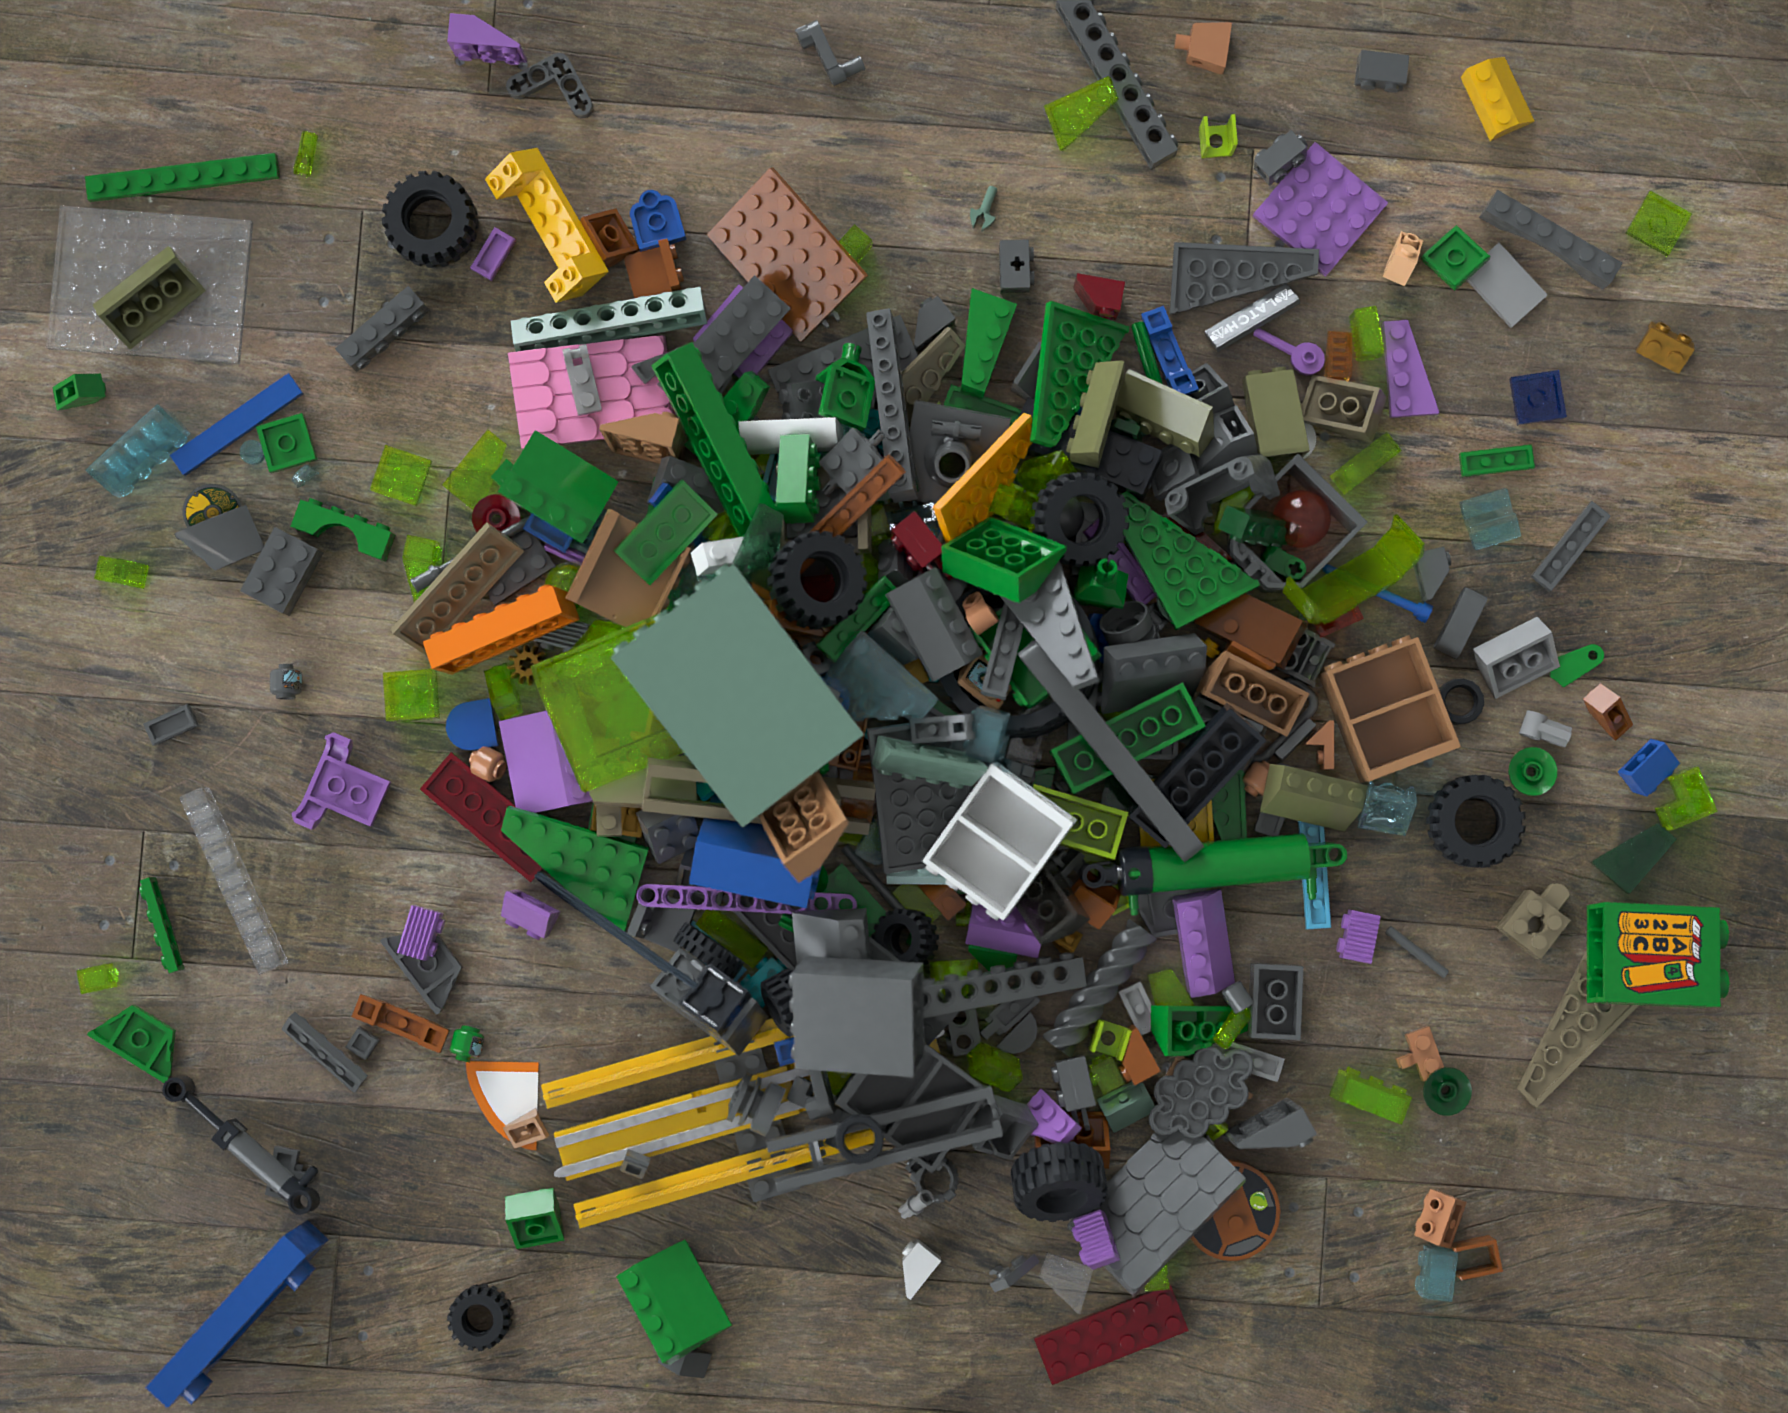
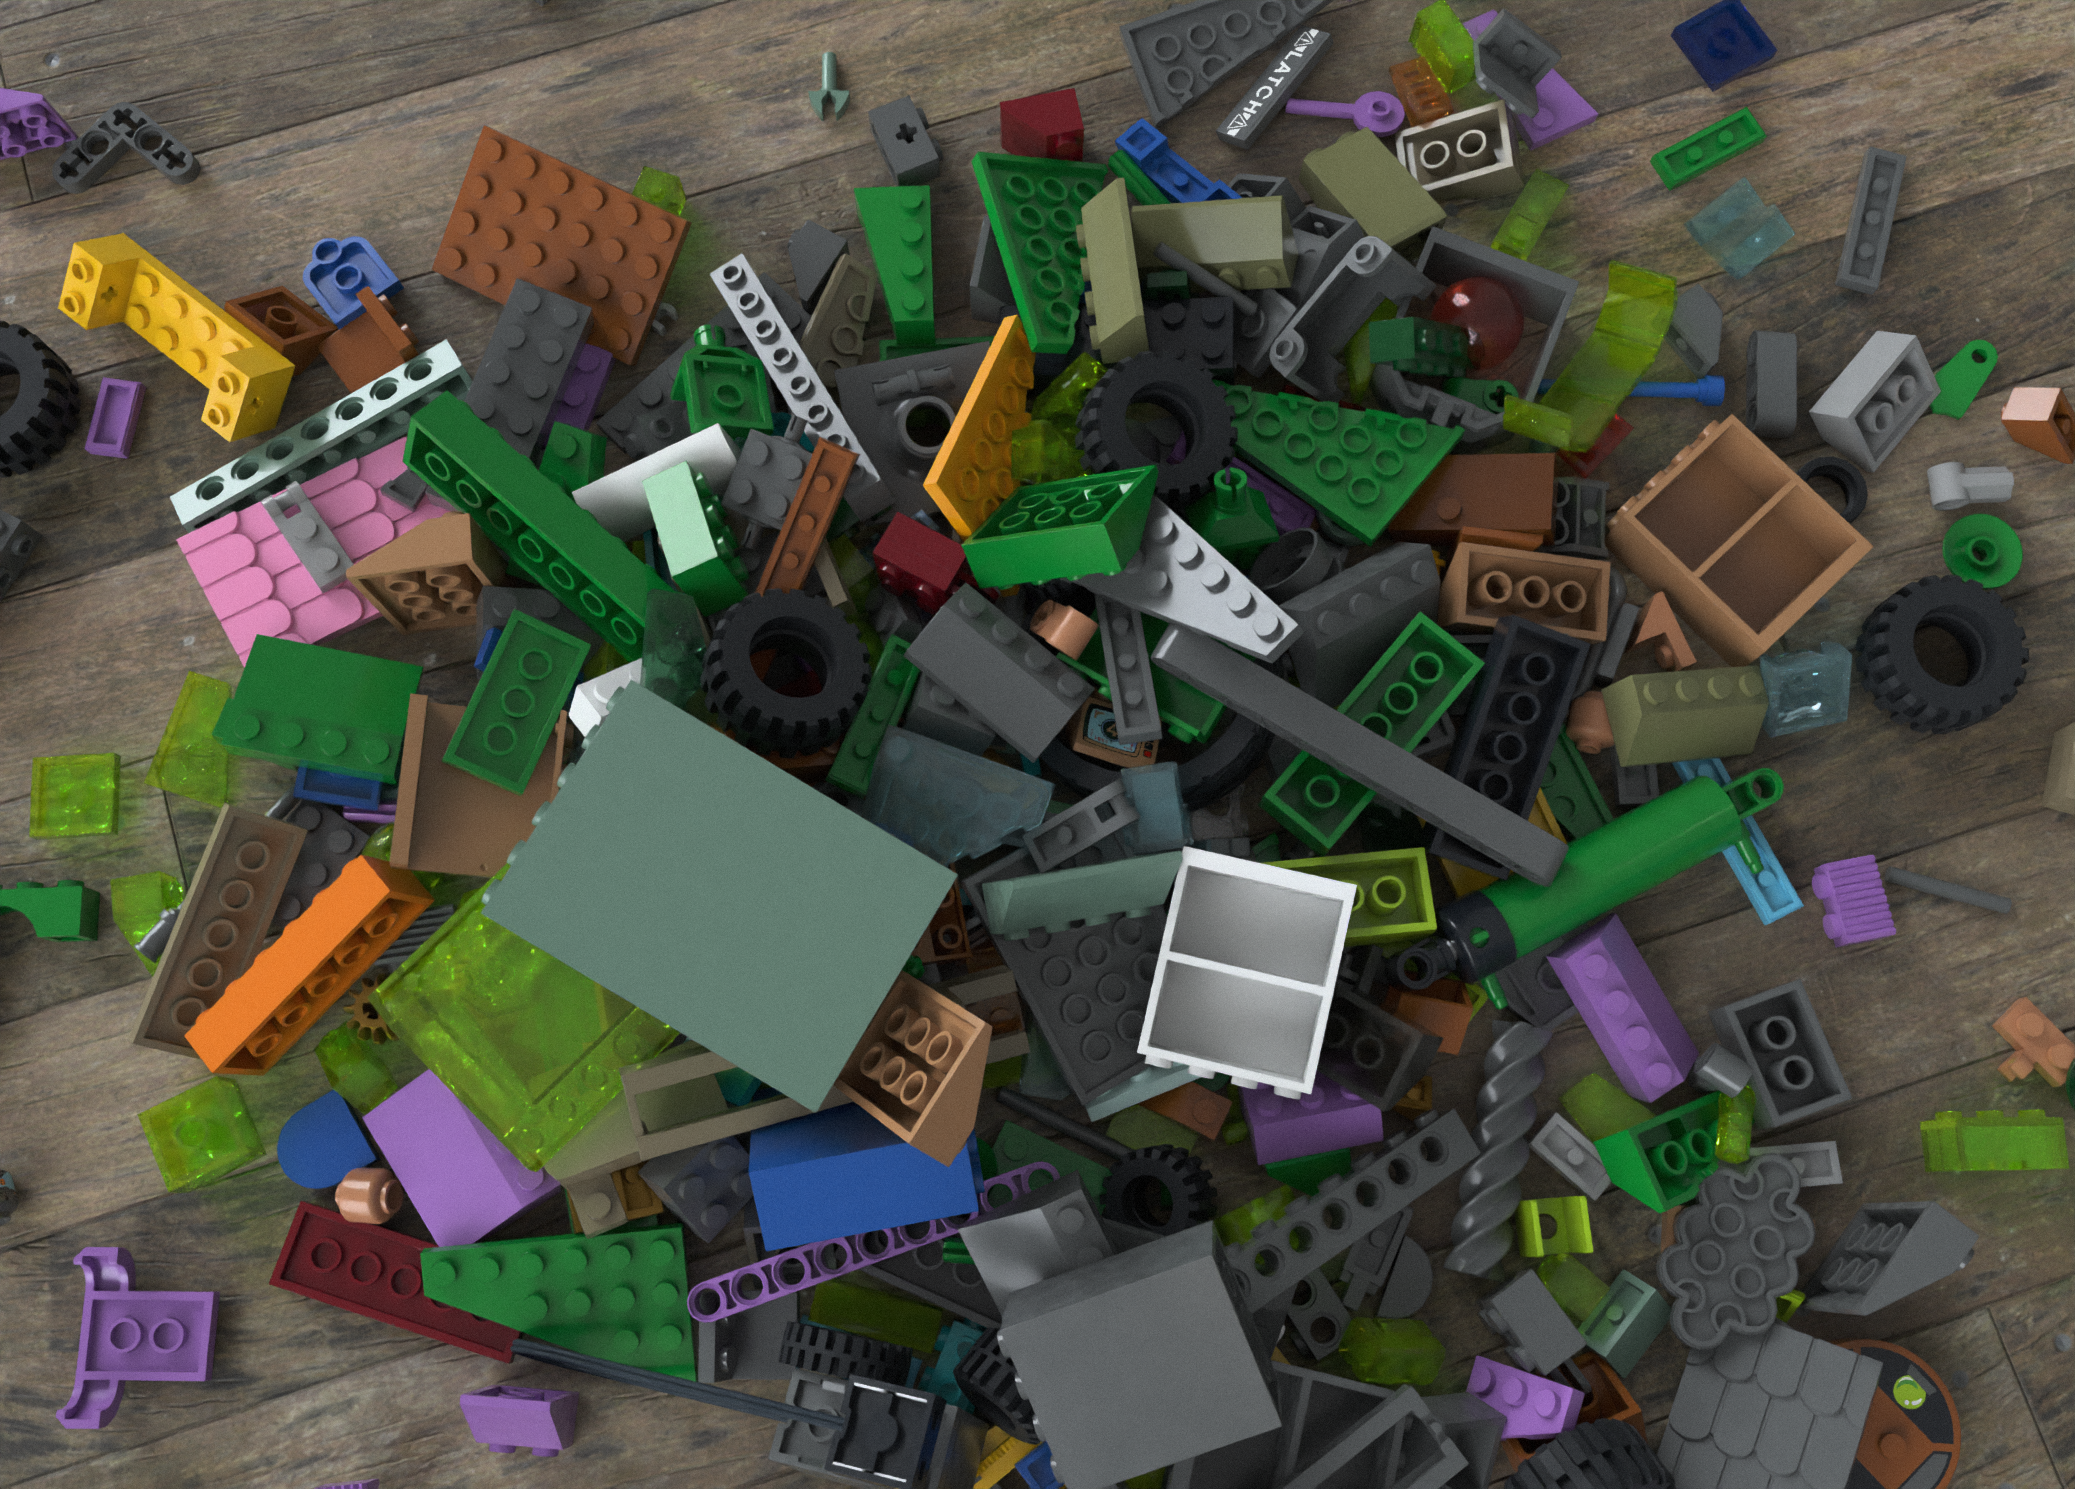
camera: 25 degrees left, 10 degrees down
(495, 505) = (244, 782): dark red dish -> none
(1137, 1061) = (1619, 1241): dark orange slope -> none
(1151, 432) = (1204, 278): none -> dark grey bar
(1392, 368) = (1513, 61): none -> dark grey bracket

